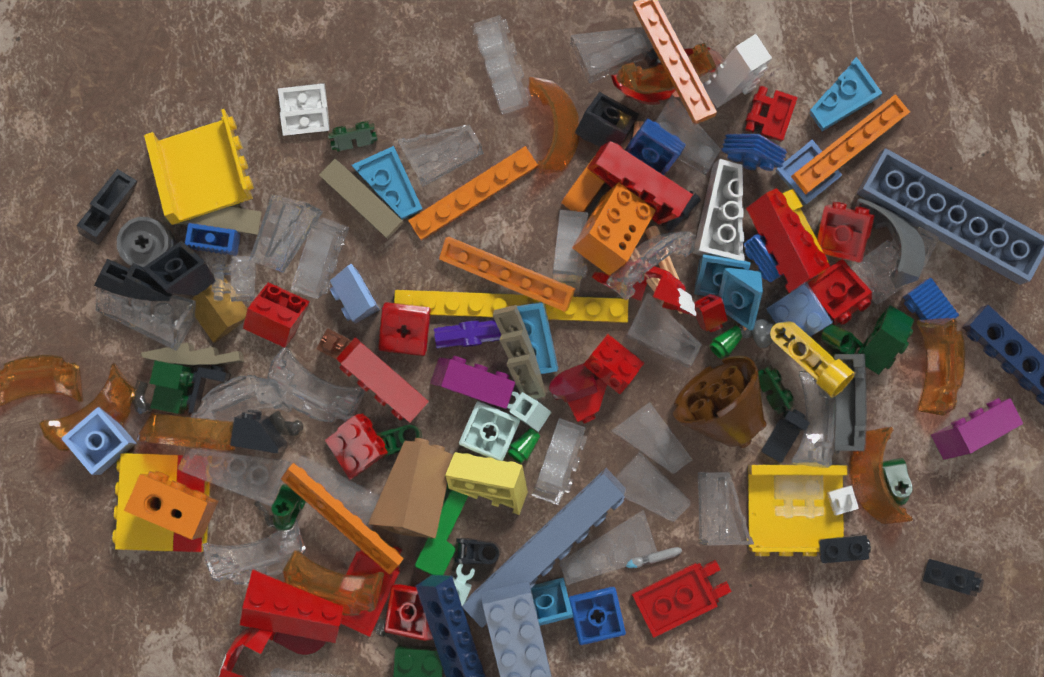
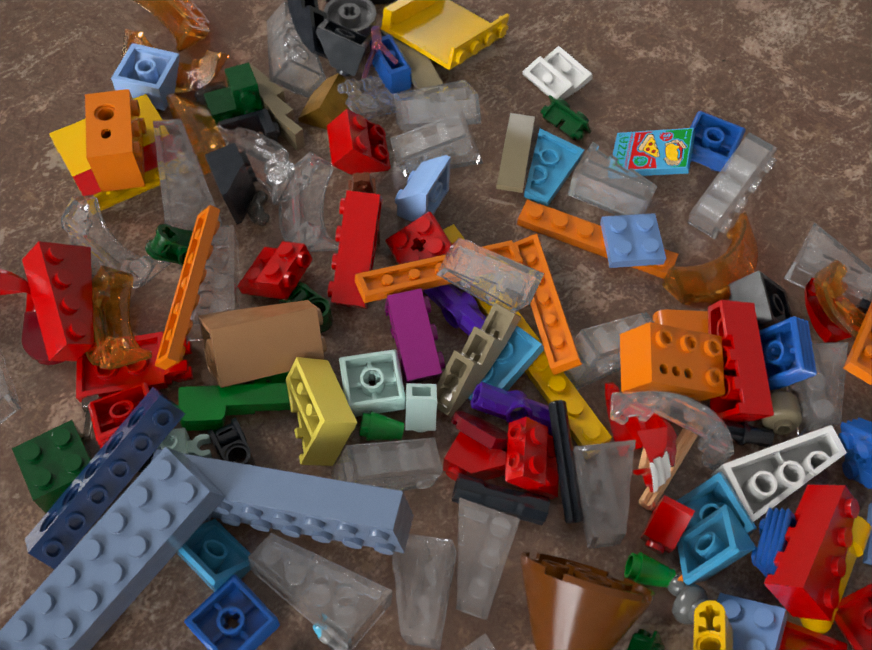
camera: 55 degrees right, 25 degrees down
(195, 243) = (377, 45): none -> clear pink plant
(431, 98) = (655, 151): none -> tile
(438, 333) = (415, 275): none -> orange plate
(452, 29) = (714, 140): none -> blue brick
(471, 304) = (489, 275): none -> clear wedge
(497, 173) = (632, 240): none -> medium blue plate
(573, 350) = (502, 403): none -> dark purple piece
(612, 414) = (523, 505): none -> black axle
(628, 344) = (565, 462): none -> black axle
(685, 174) = (786, 412): none -> dark tan head

